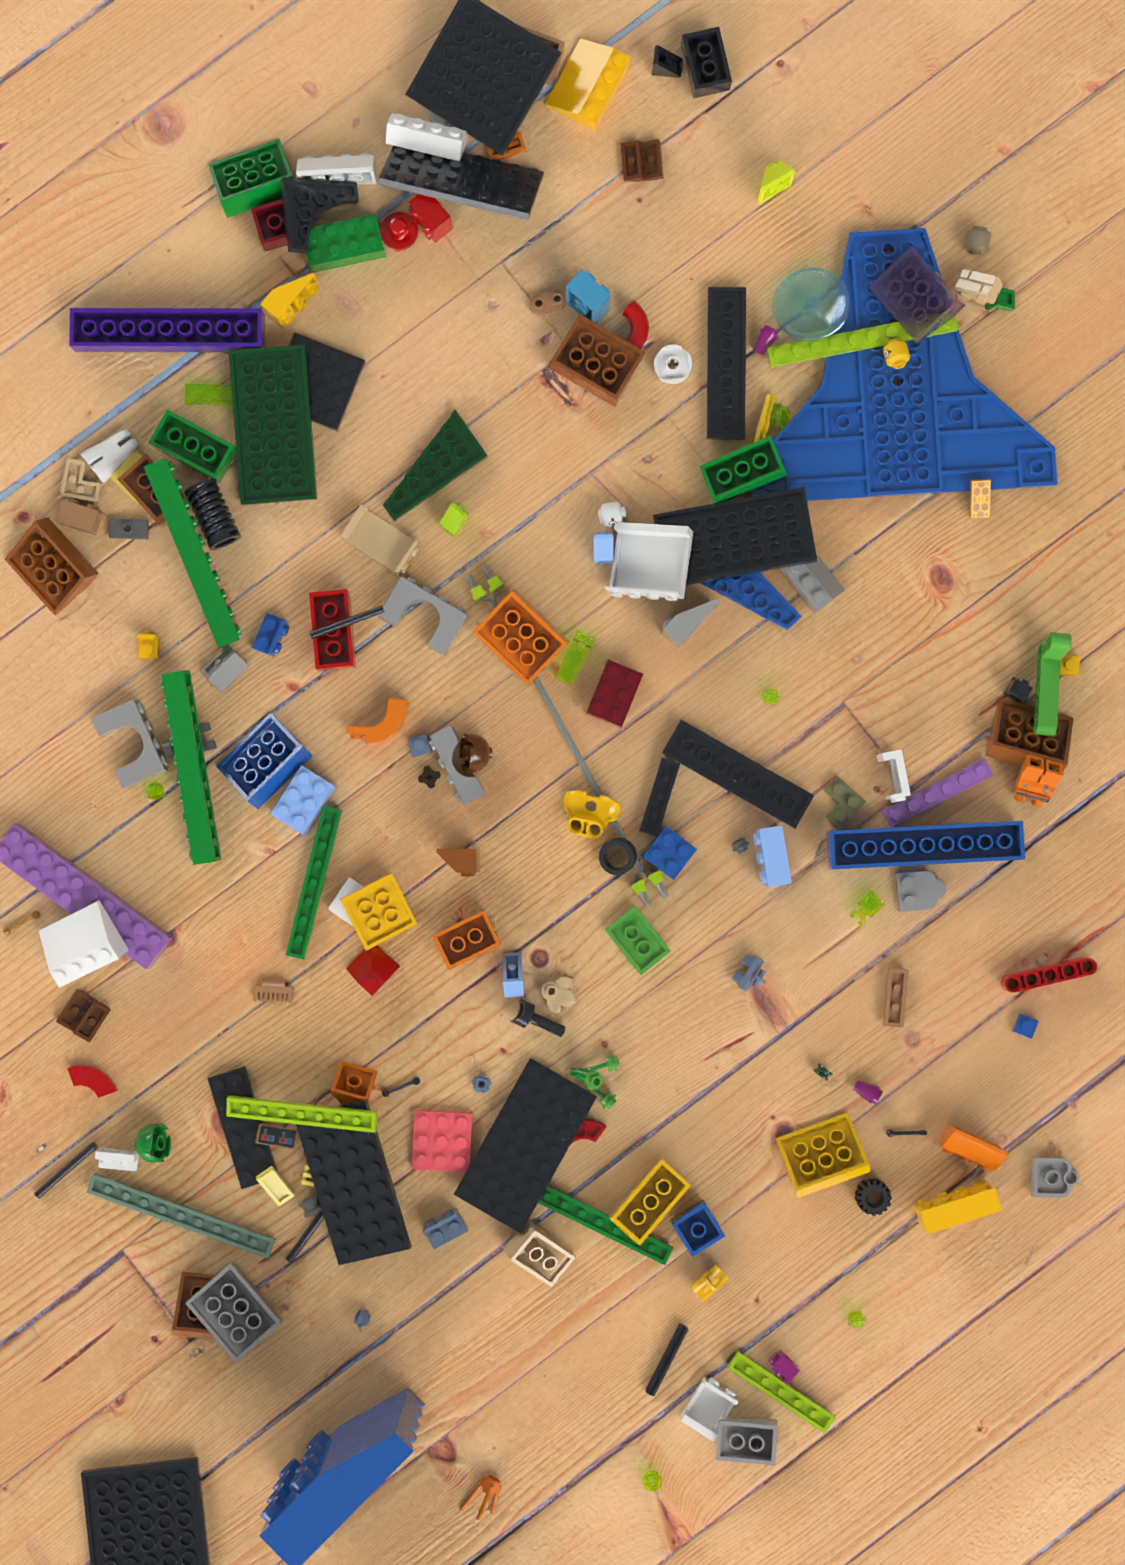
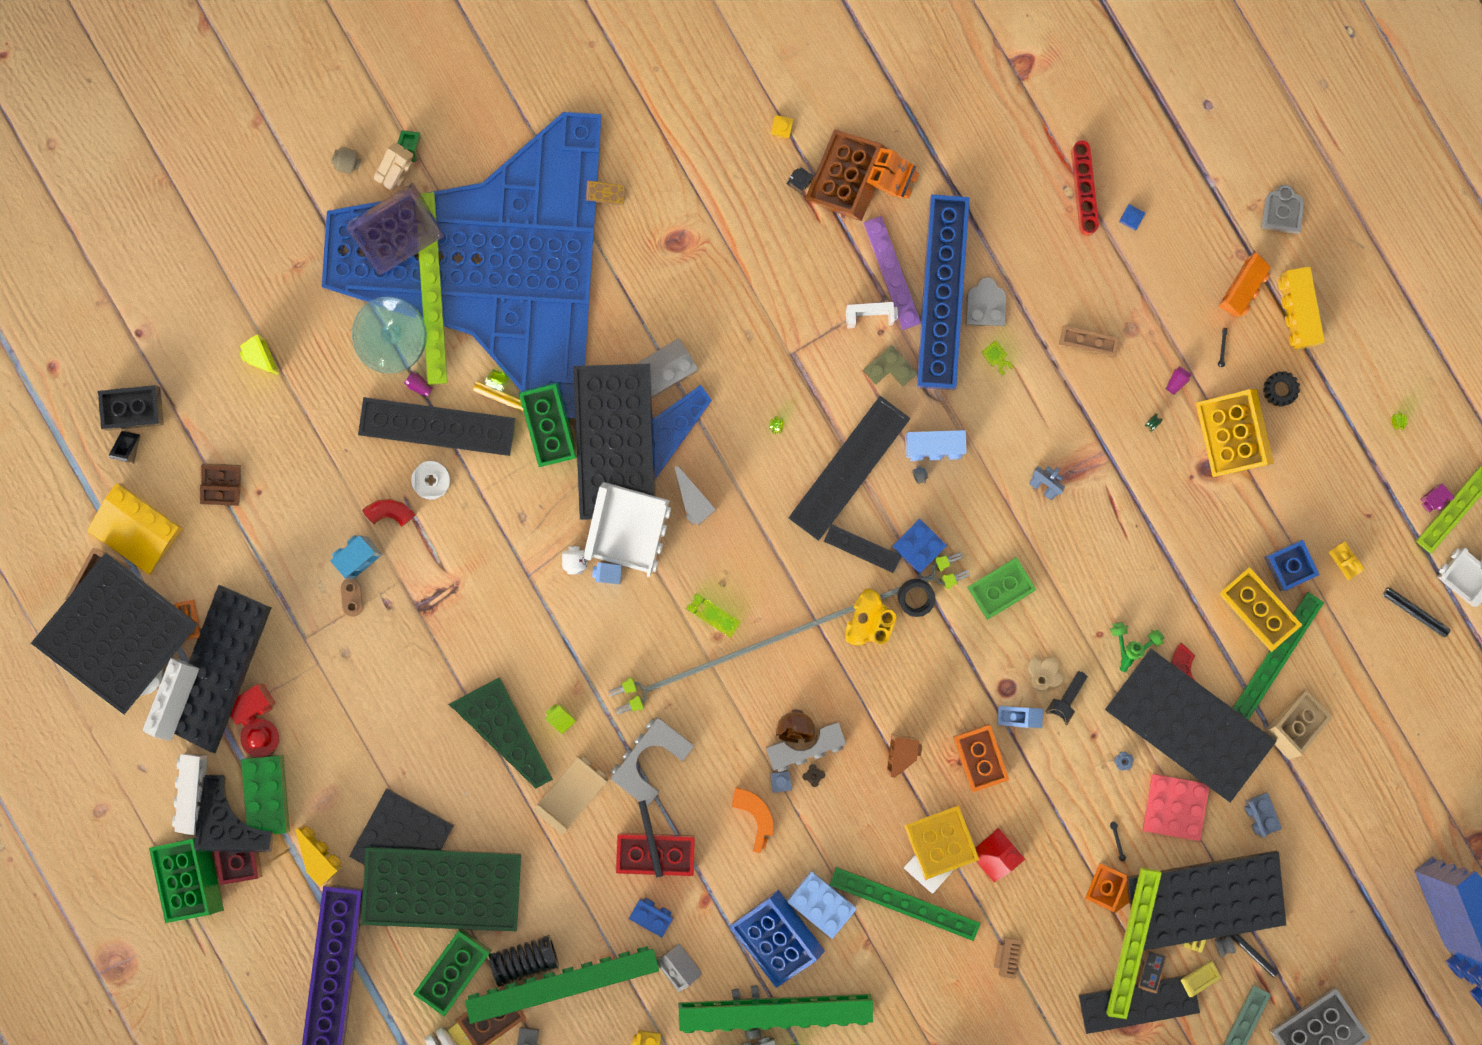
camera: 80 degrees left, 0 degrees up
(208, 395) = (400, 950): clear neon green plate -> none
(362, 1317) = (1340, 908): sand blue plate -> none
(521, 636) = (686, 666): orange slope -> none
(596, 360) = (417, 555): dark orange slope -> none
(614, 693) = (754, 580): dark red brick -> none
(896, 353) = (450, 257): yellow head -> none
(1049, 656) = (771, 145): bright green beam -> none

